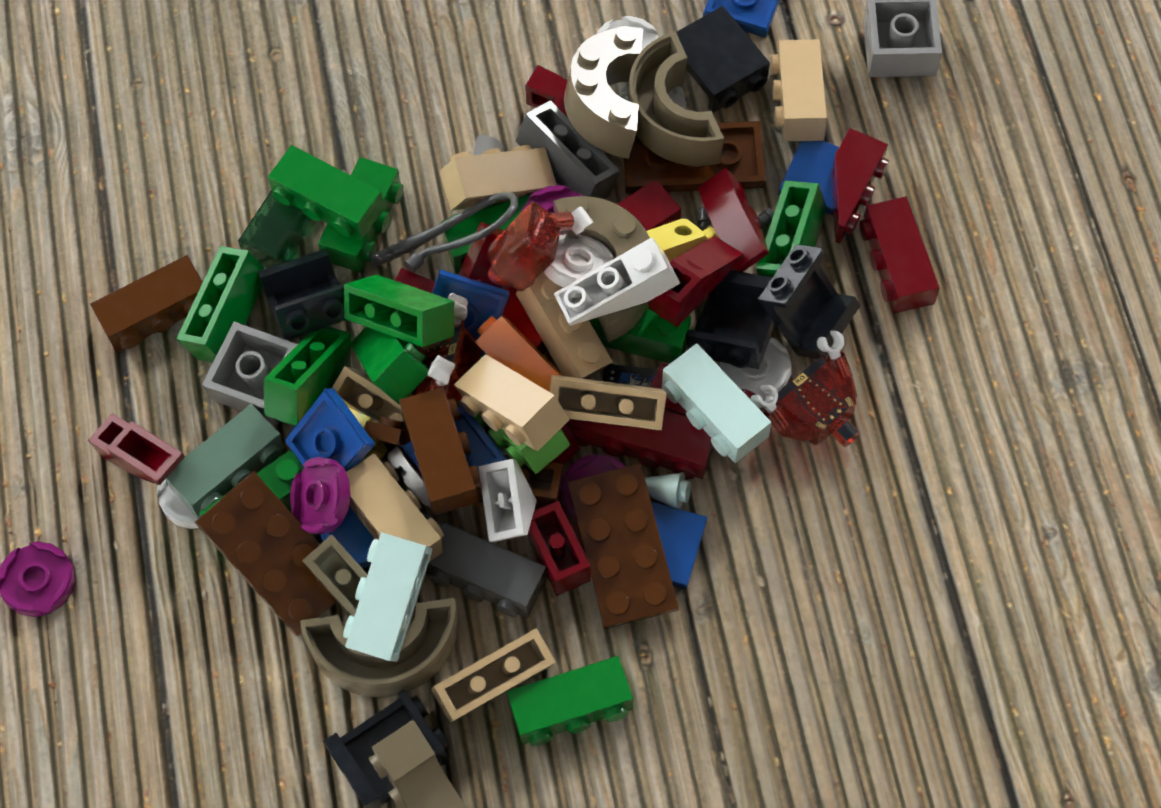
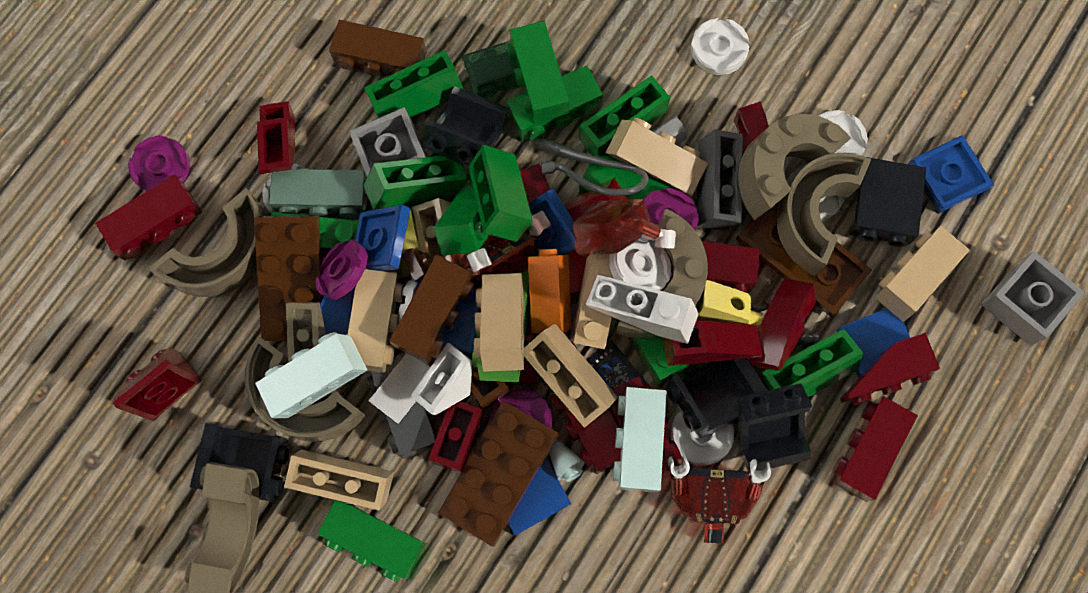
camera: 45 degrees right, 10 degrees up
(79, 628) = (149, 218): none -> dark red brick
(200, 605) = (223, 268): none -> dark tan brick
(241, 749) = (157, 385): none -> dark red slope
(427, 198) = (644, 101): none -> green brick
(454, 53) = (720, 46): none -> white tile
(469, 550) = (395, 392): none -> white sticker

